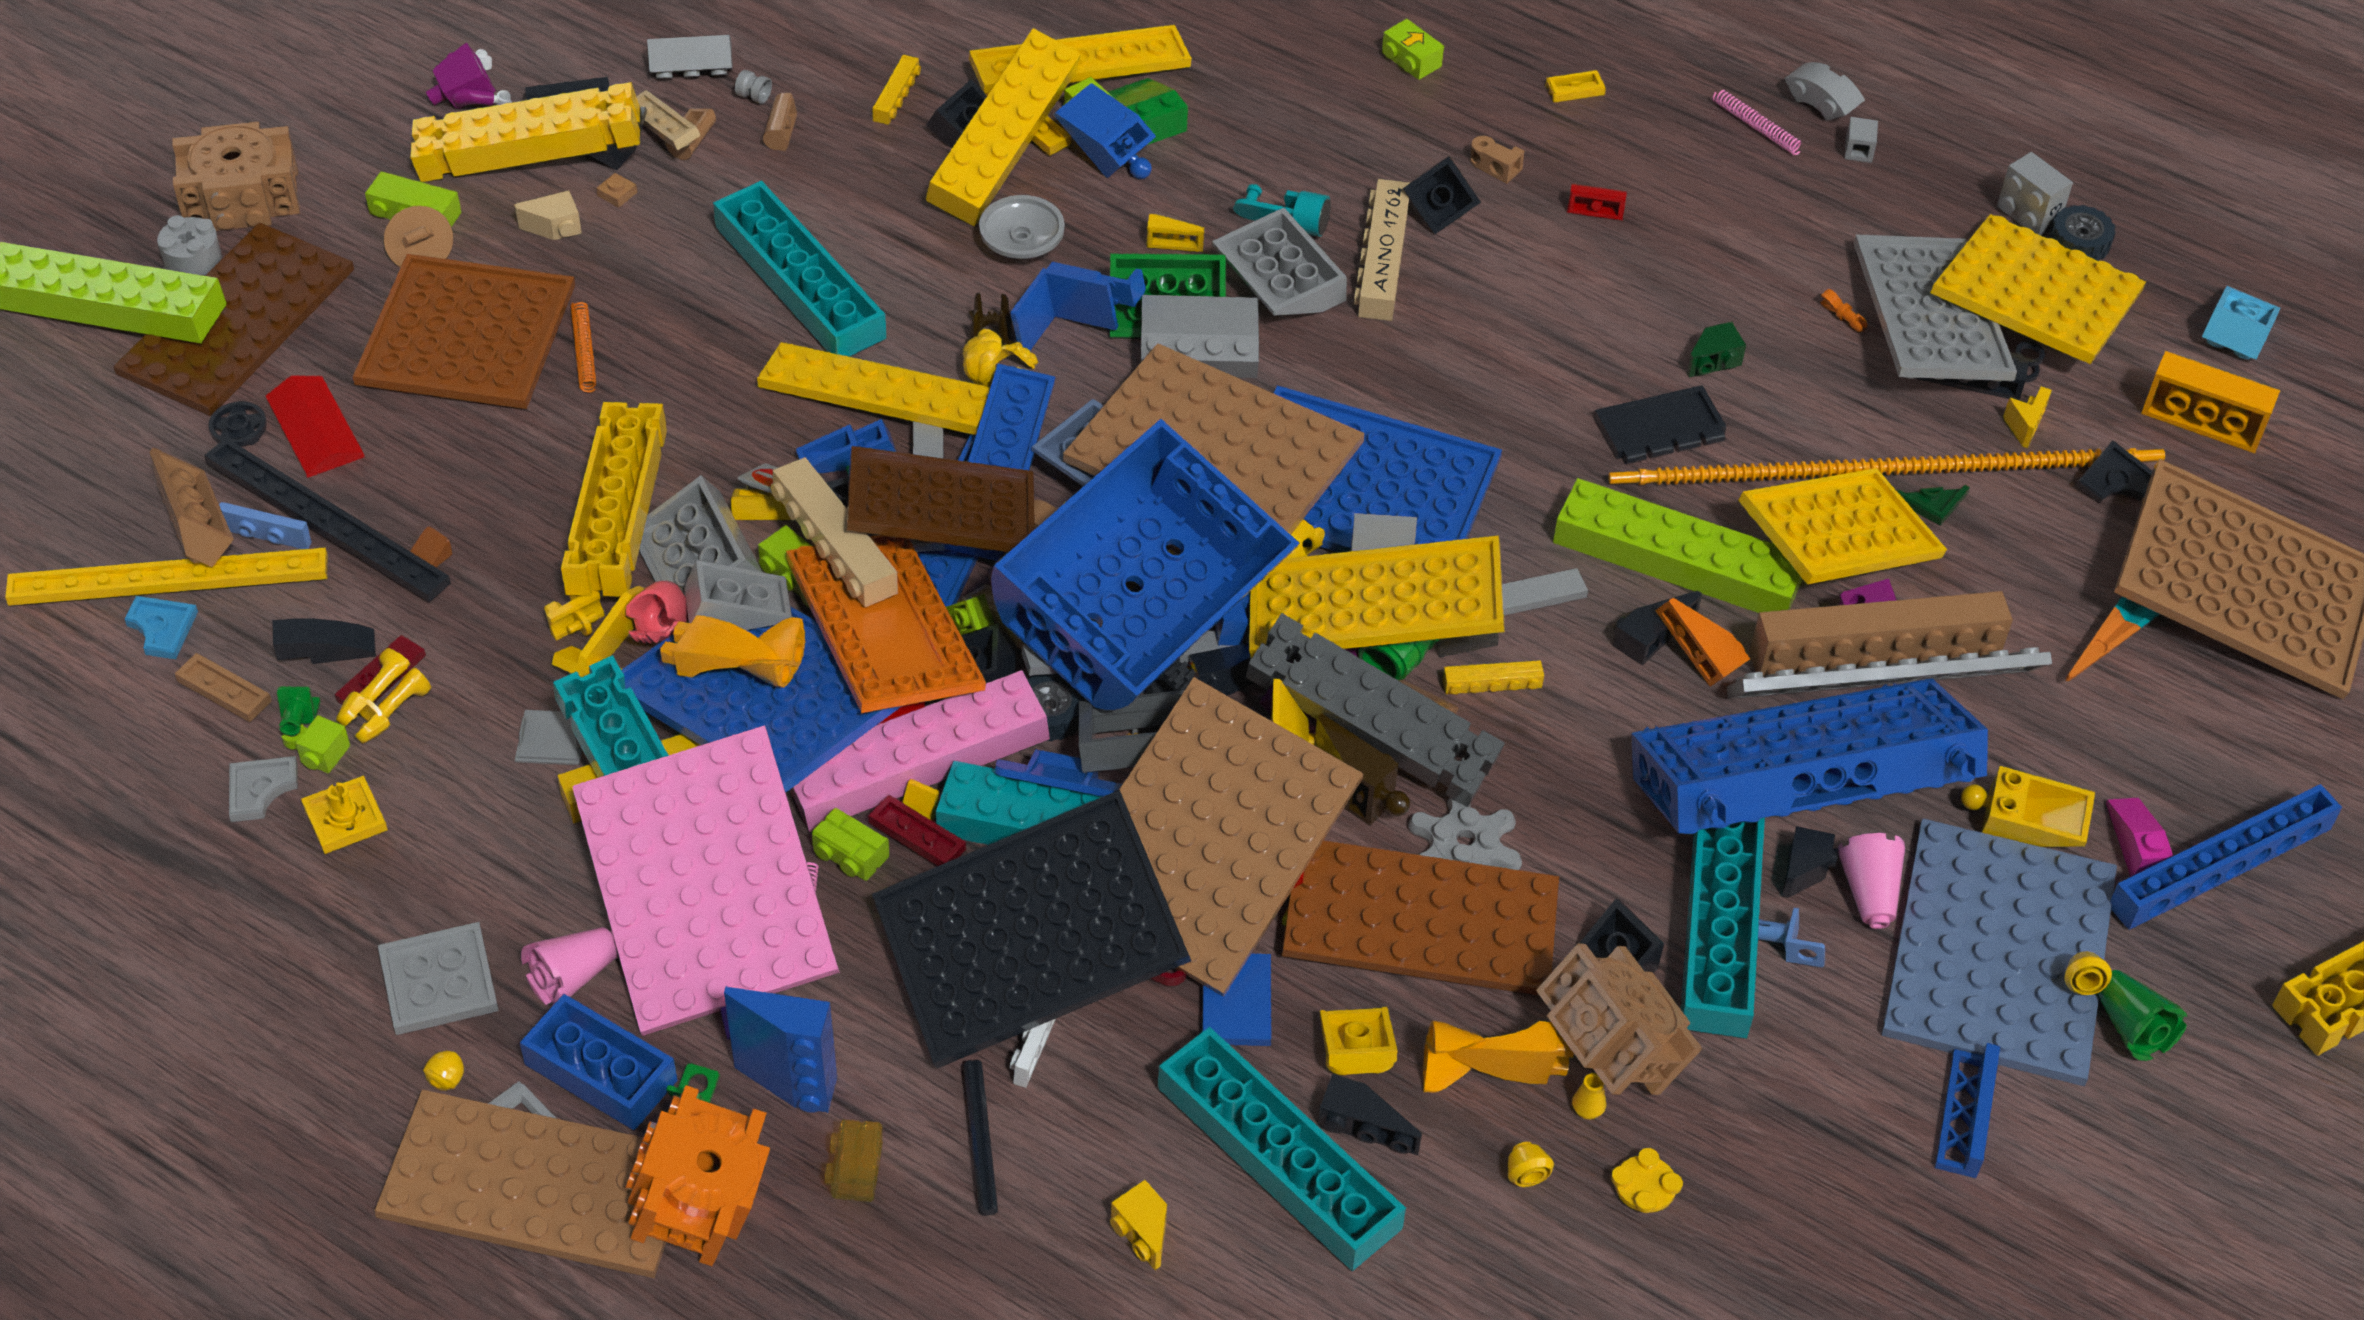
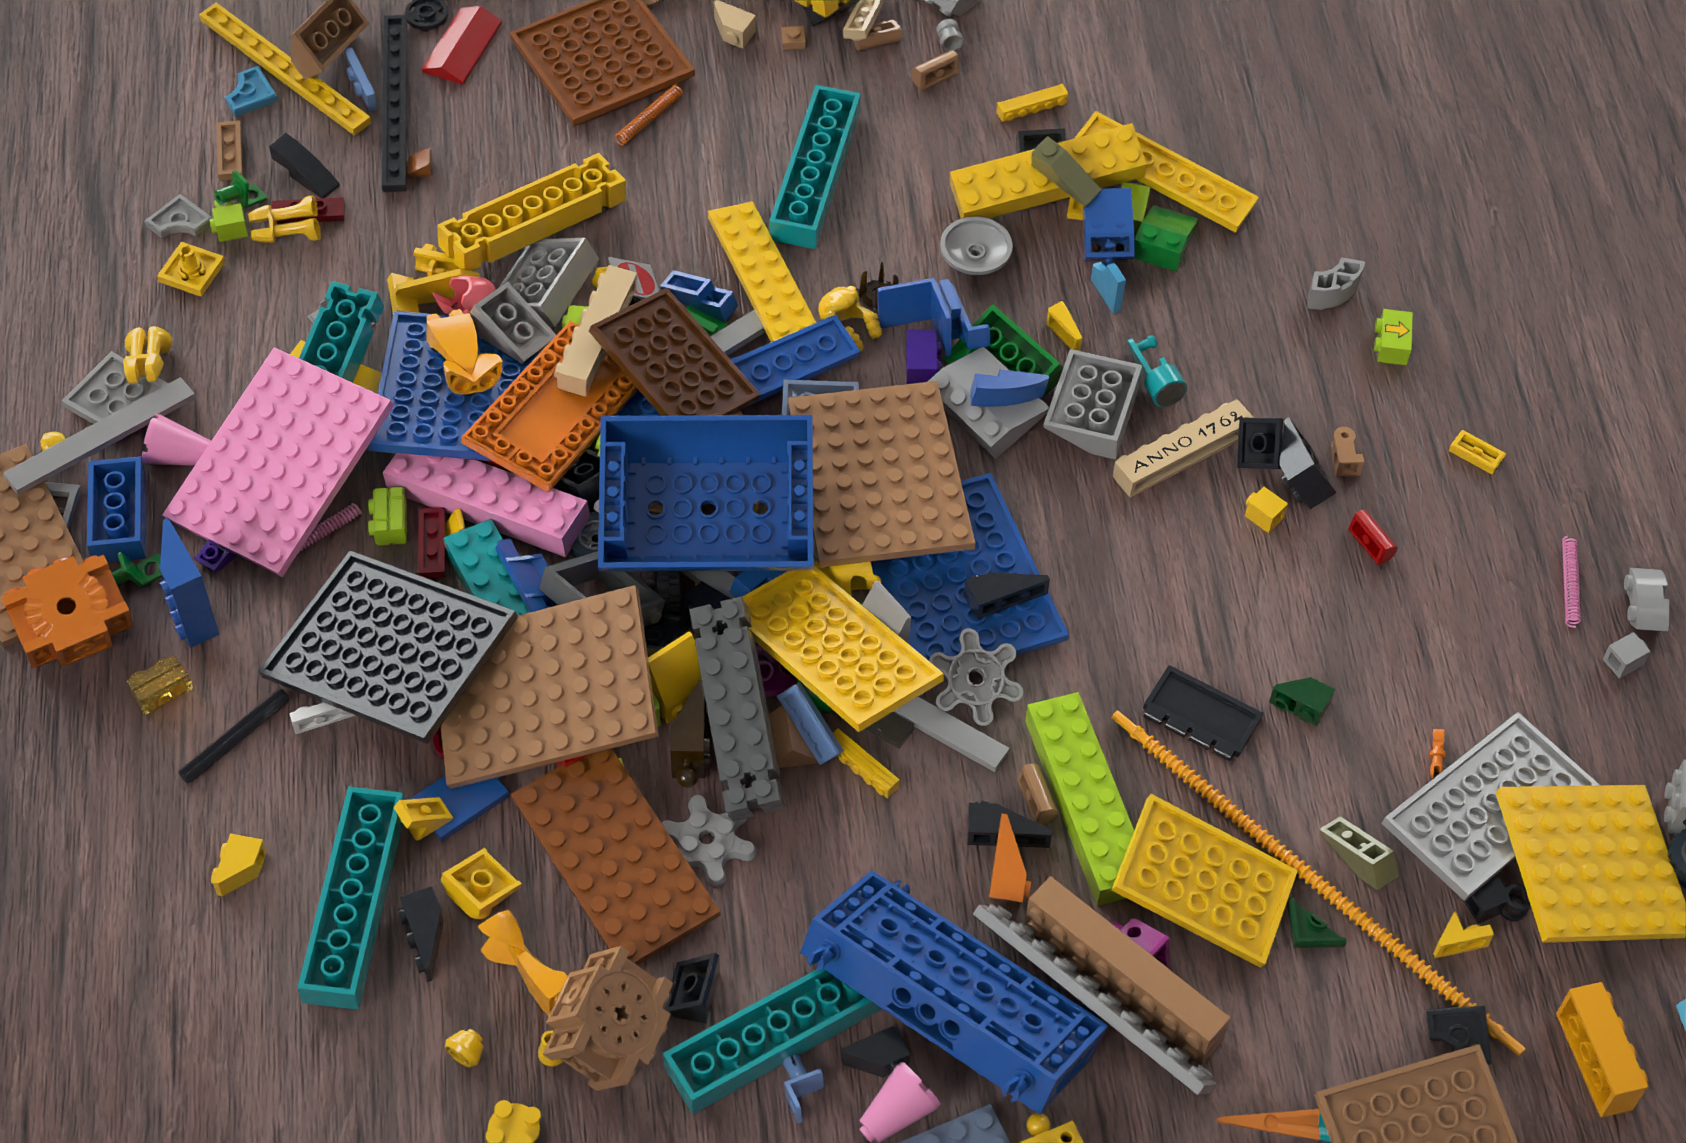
camera: 50 degrees right, 5 degrees up
(435, 928) = (148, 364): none -> yellow piece
(487, 1020) = (98, 436): none -> light grey tile
(1028, 104) = (1064, 171): none -> olive slope
(1097, 346) = (921, 355): none -> dark purple brick
(1165, 174) = (1110, 284): none -> dark azure tile
(1215, 305) = (1007, 388): none -> blue slope
(1244, 1033) = (423, 815): none -> yellow slope
(1322, 42) = (1335, 285): none -> light grey brick
(1417, 459) = (1000, 591): none -> black slope
(1429, 678) = (810, 723): none -> medium blue plate
(1489, 521) = (989, 665): none -> light grey plate
(1500, 186) = (1302, 468): none -> black slope
(1502, 243) = (1265, 509): none -> yellow brick
(1641, 581) = (1037, 794): none -> medium nougat brick
(1900, 417) = (1361, 852): none -> olive slope

